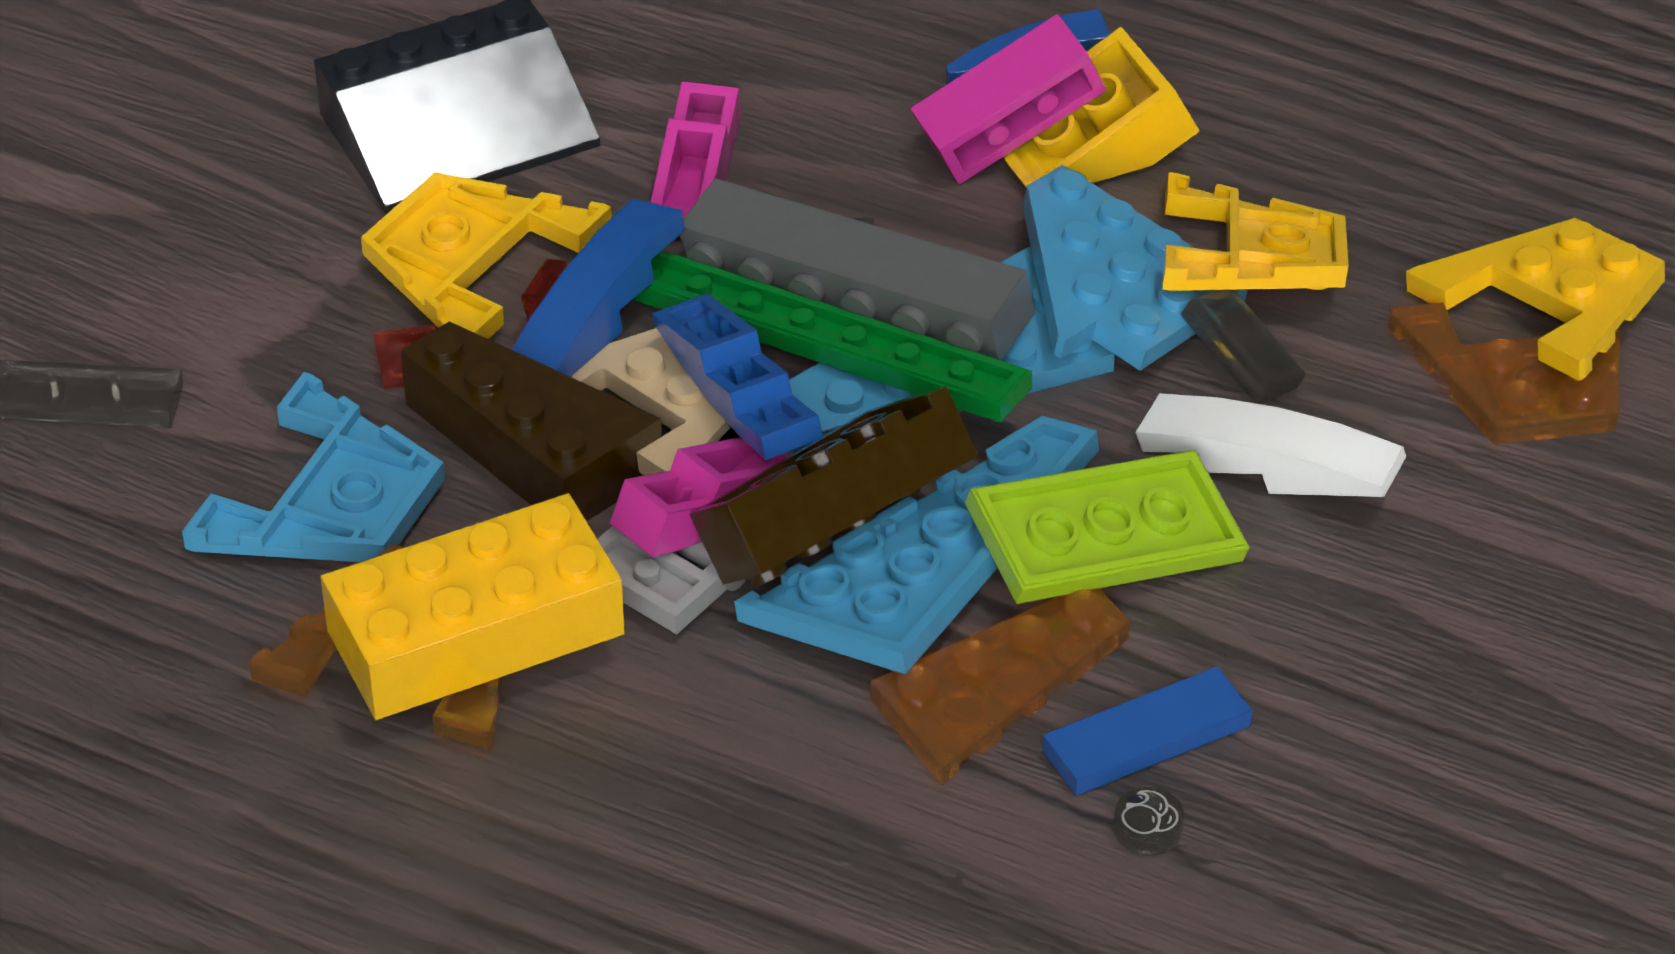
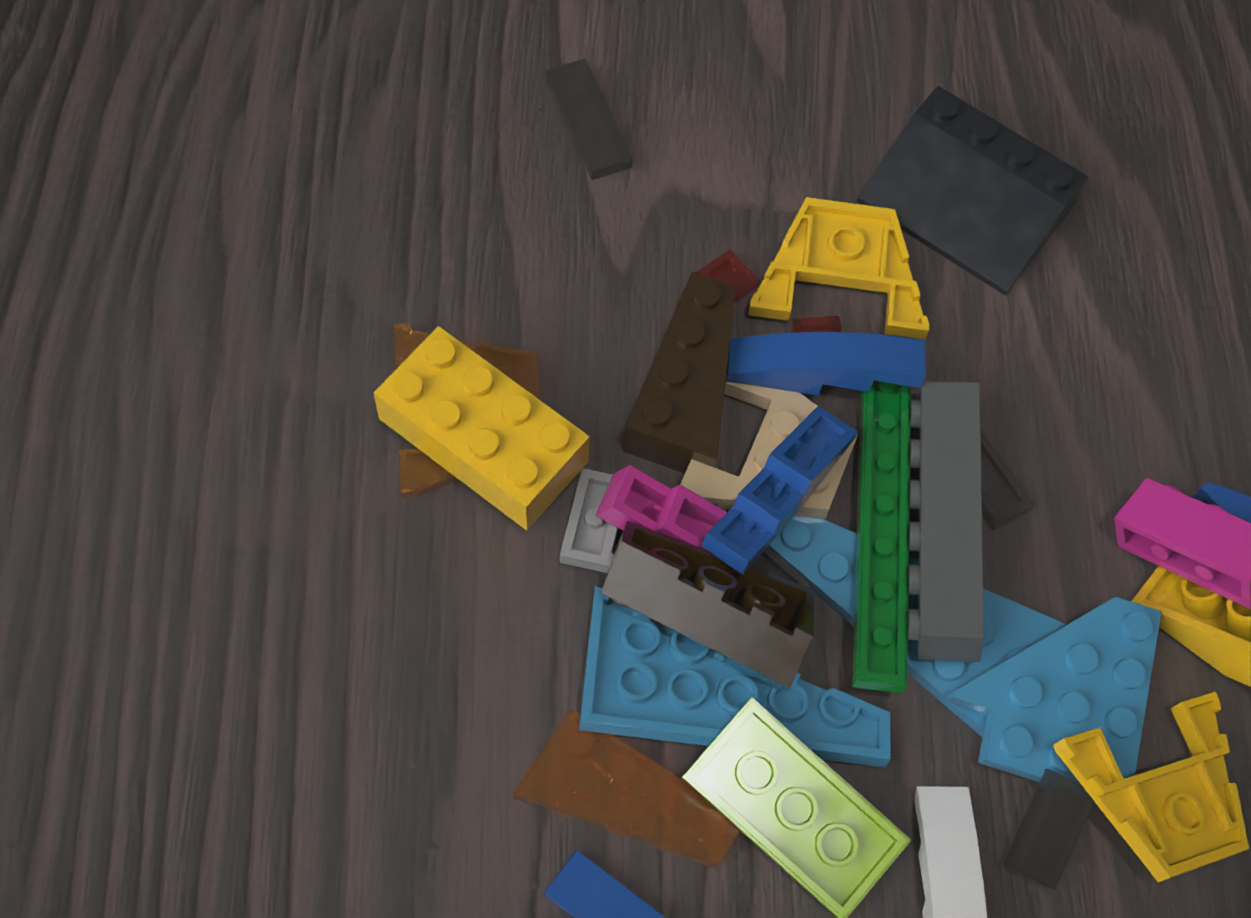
camera: 60 degrees right, 20 degrees up
(344, 504) = (576, 308): dark azure wing -> none
(697, 144) = (1019, 358): dark pink slope -> none

